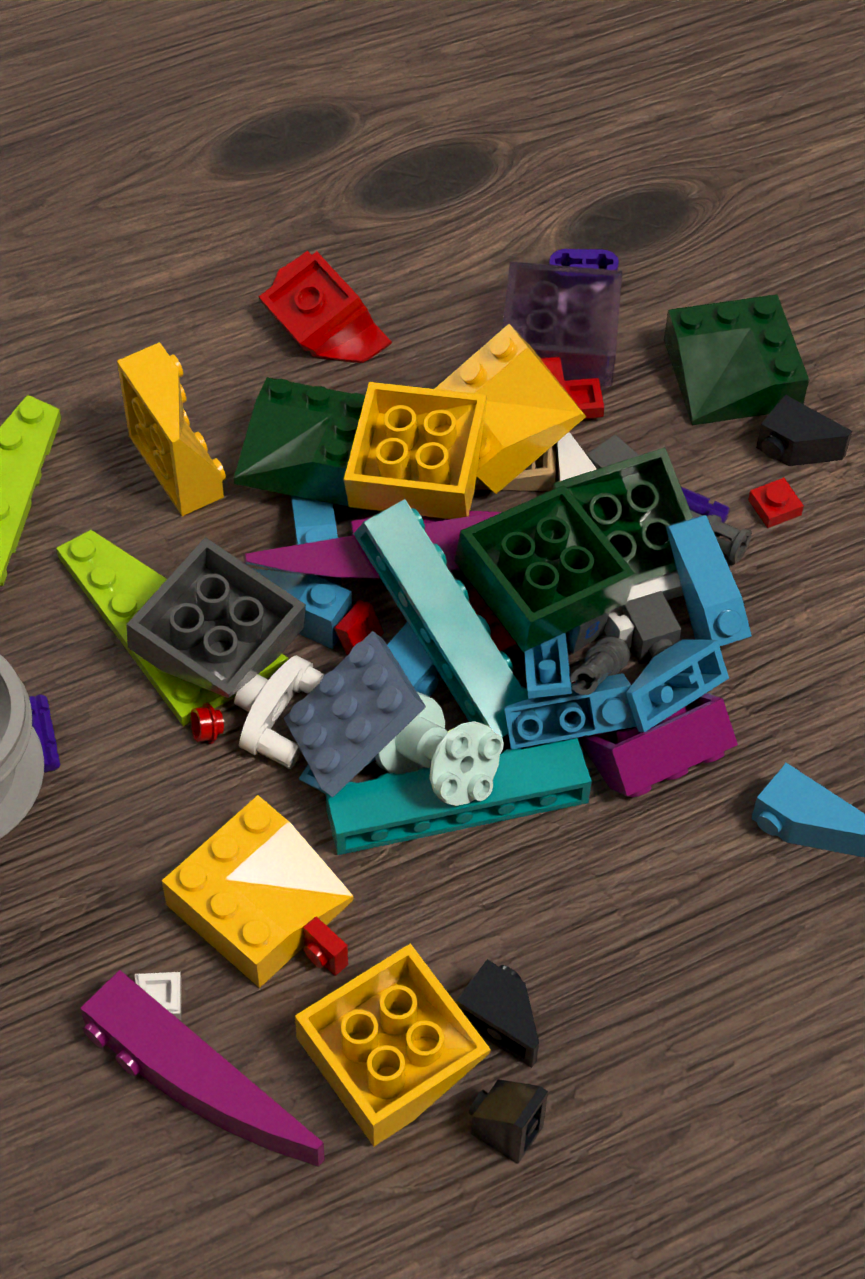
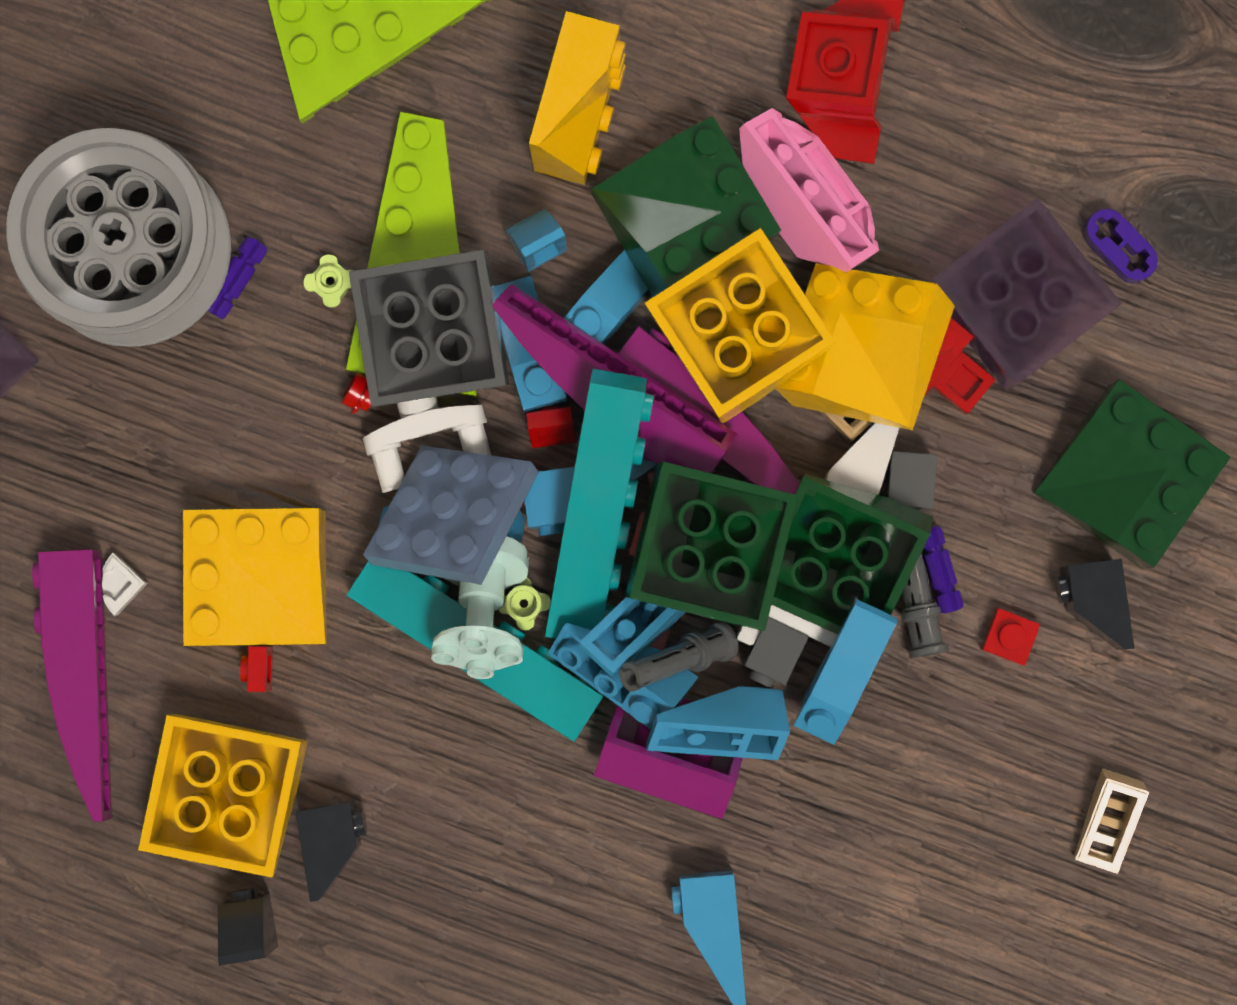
camera: 50 degrees right, 30 degrees up
(115, 688) = (317, 281): none -> yellowish green plate
(234, 514) = (537, 239): none -> dark azure slope
(354, 372) = (807, 192): none -> bright pink wedge

